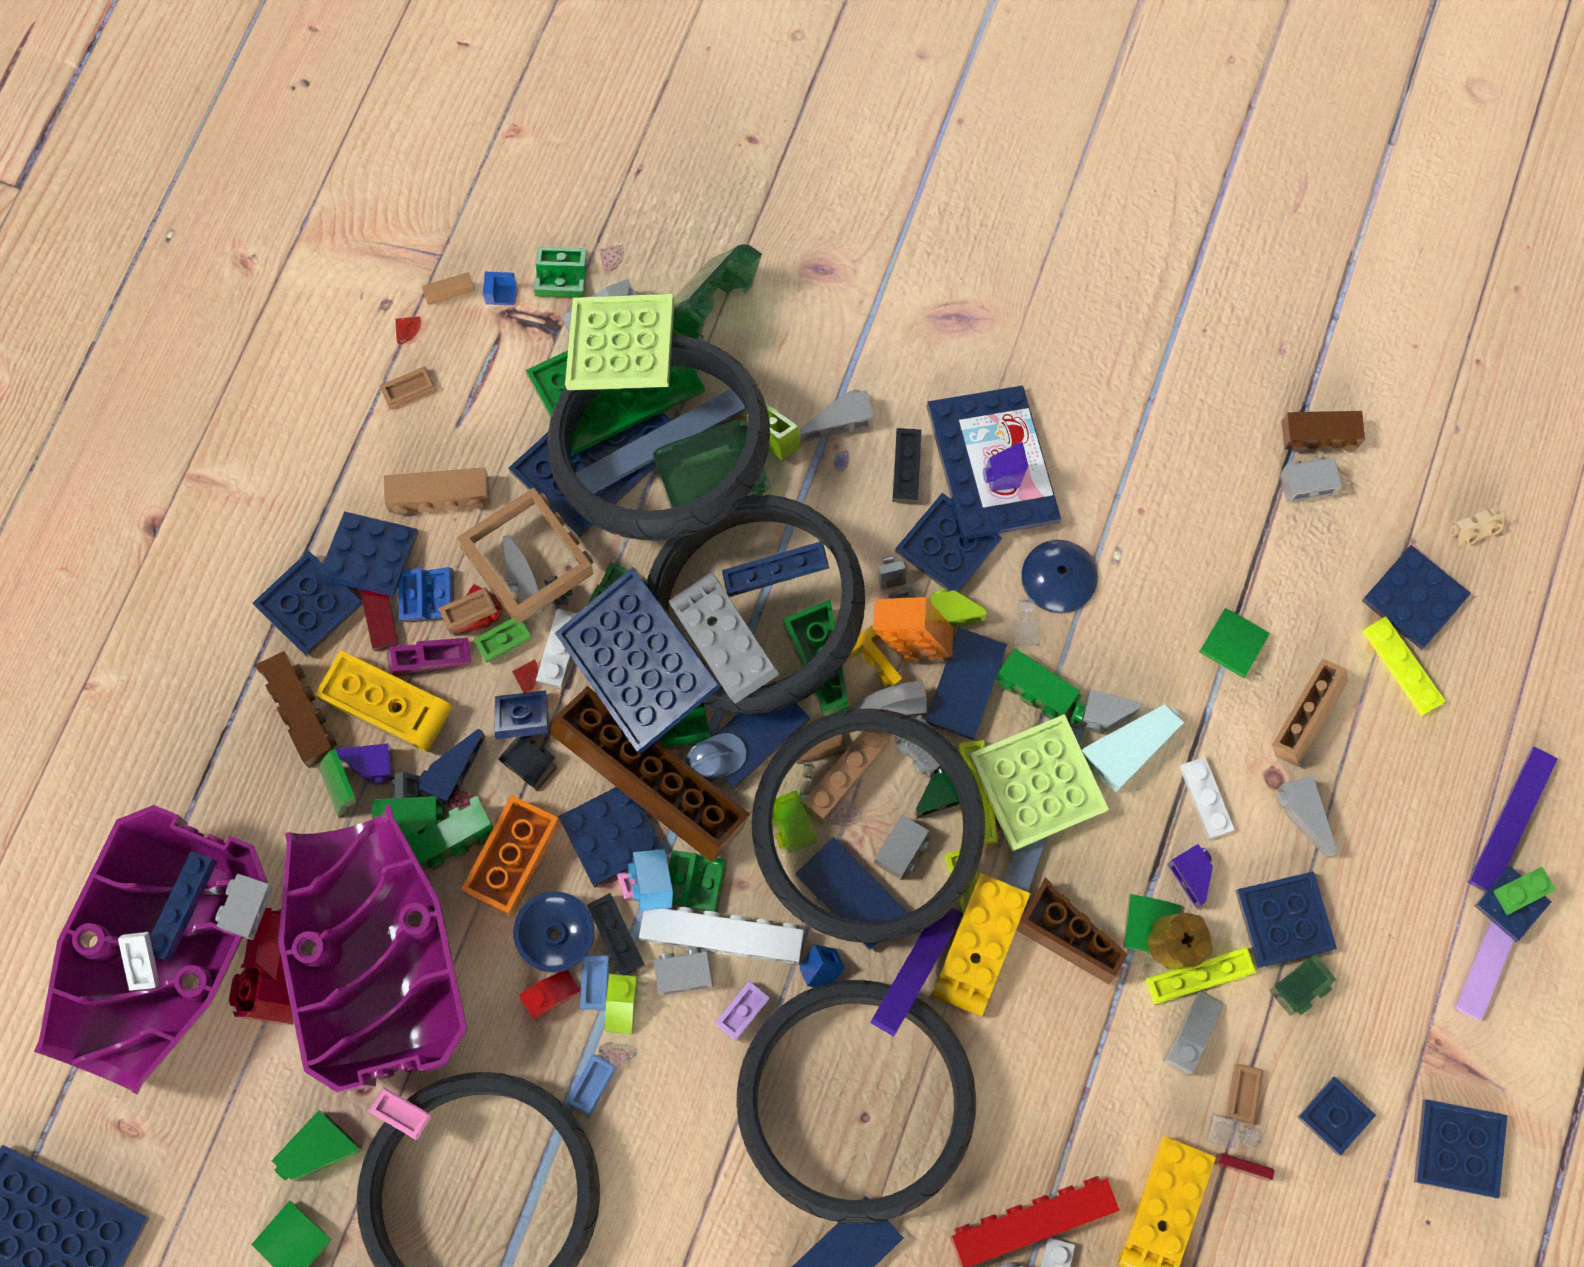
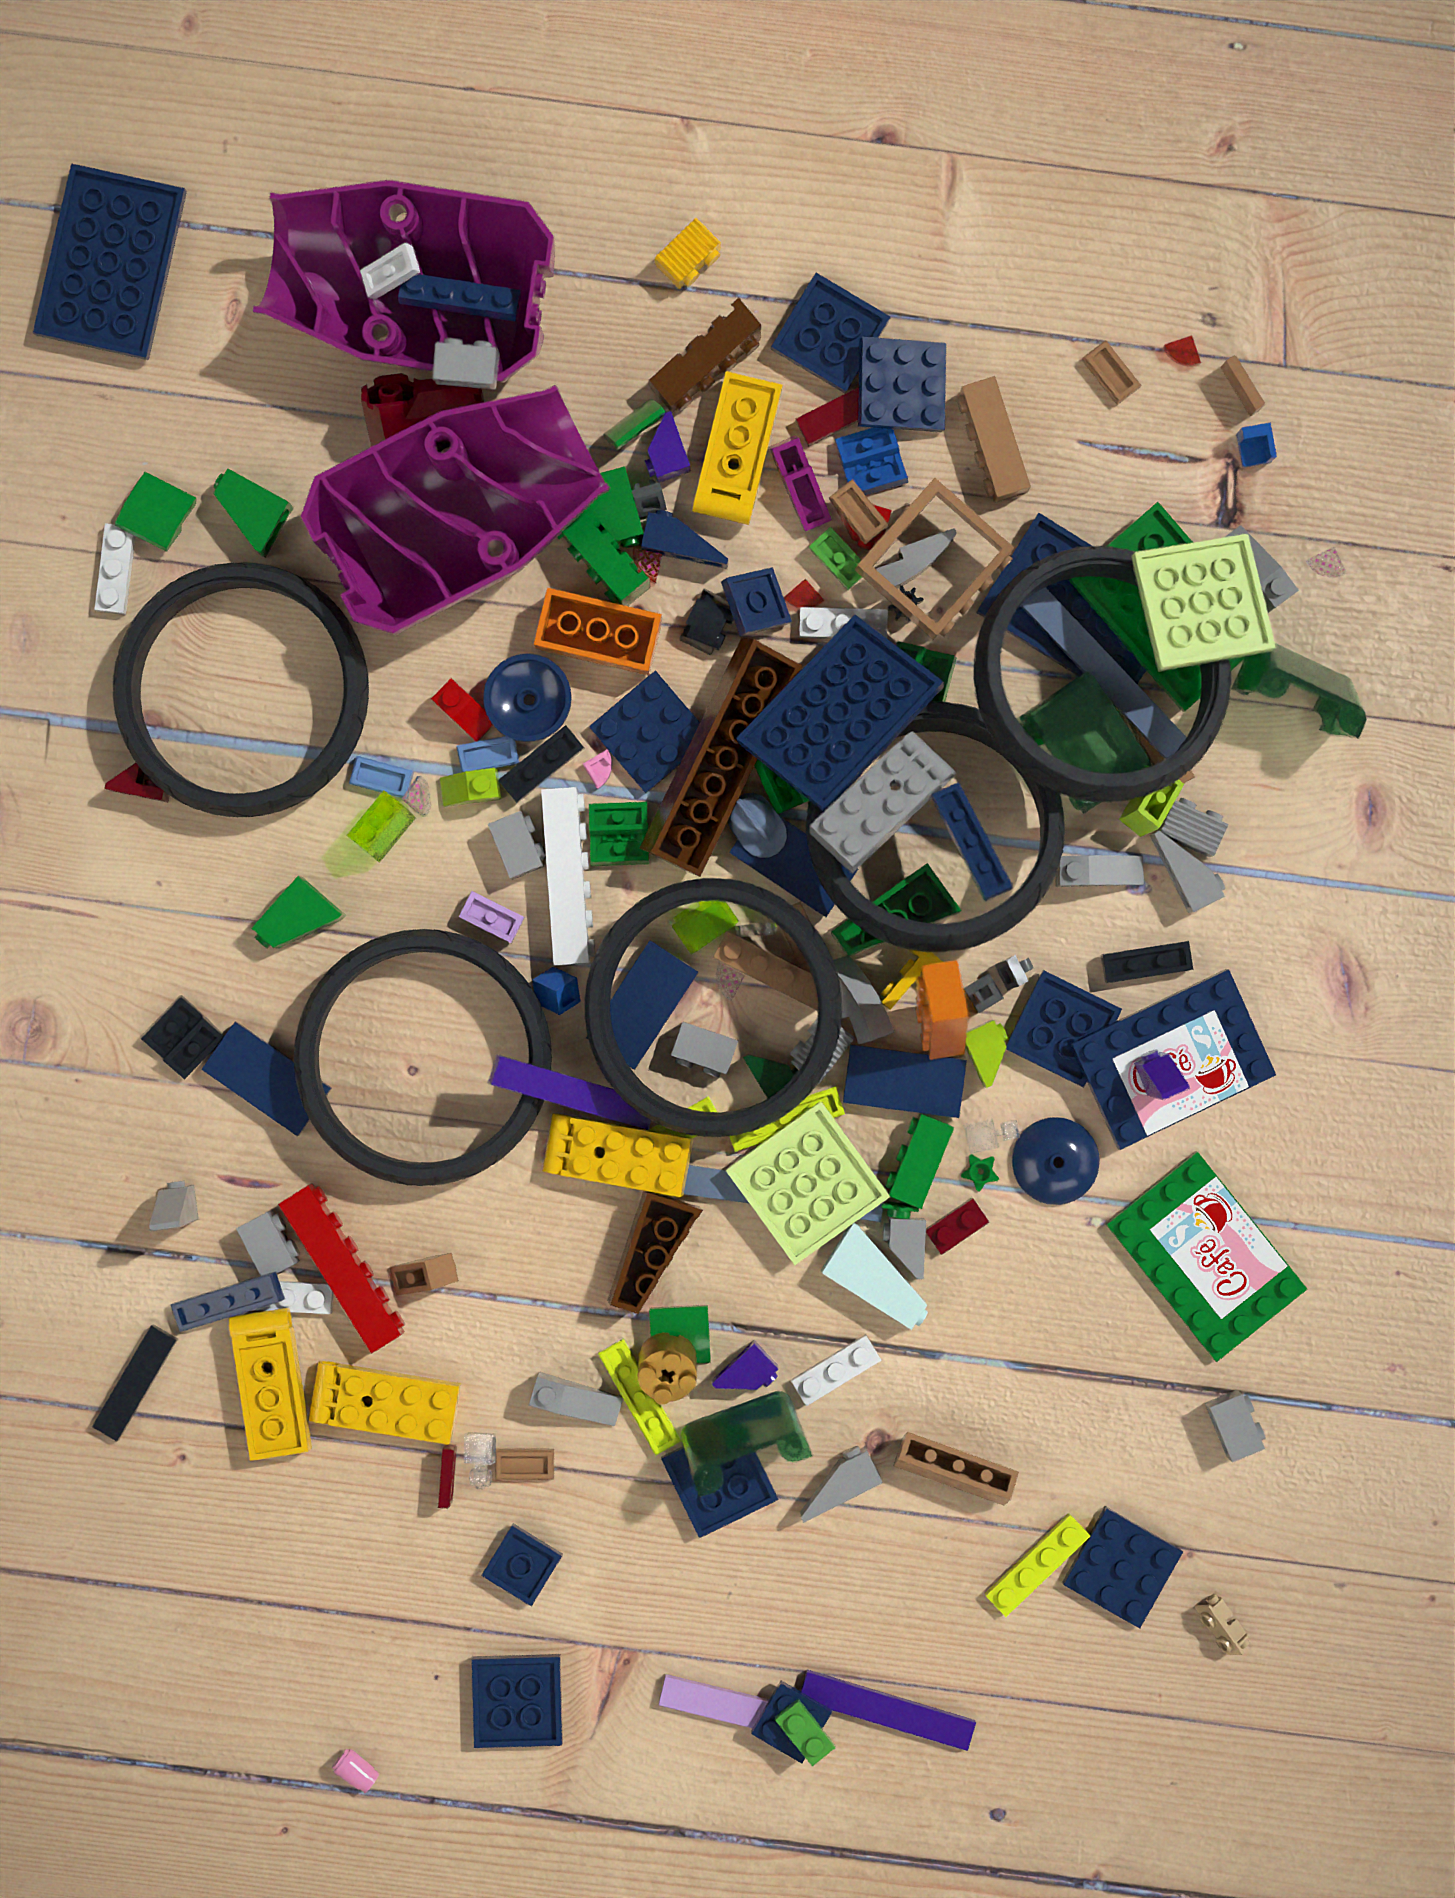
camera: 80 degrees right, 15 degrees up
(203, 706) = (688, 254): none -> yellow brick
(400, 1113) = (298, 587): bright pink tile -> none
(560, 272) = (1295, 509): green slope -> none
(636, 1092) = (381, 826): none -> clear neon green brick
(651, 880) = (605, 788): dark azure brick -> none
(698, 1192) = (295, 915): none -> green slope
(805, 401) = (1194, 828): none -> light grey brick
(822, 482) = (1100, 871): none -> light grey slope
(1054, 1147) = (424, 1274): none -> medium nougat slope
(1061, 634) = (972, 1172): none -> green plate
(1099, 668) = (956, 1226): none -> dark red plate
(1163, 473) = (1206, 1256): none -> plate
(1234, 642) = (1020, 1371): green slope -> none
(1250, 888) = (739, 1432): none -> clear green windscreen
(1303, 985) = (651, 1508): clear green brick -> none
(1323, 430) = (1299, 1431): reddish brown brick -> none

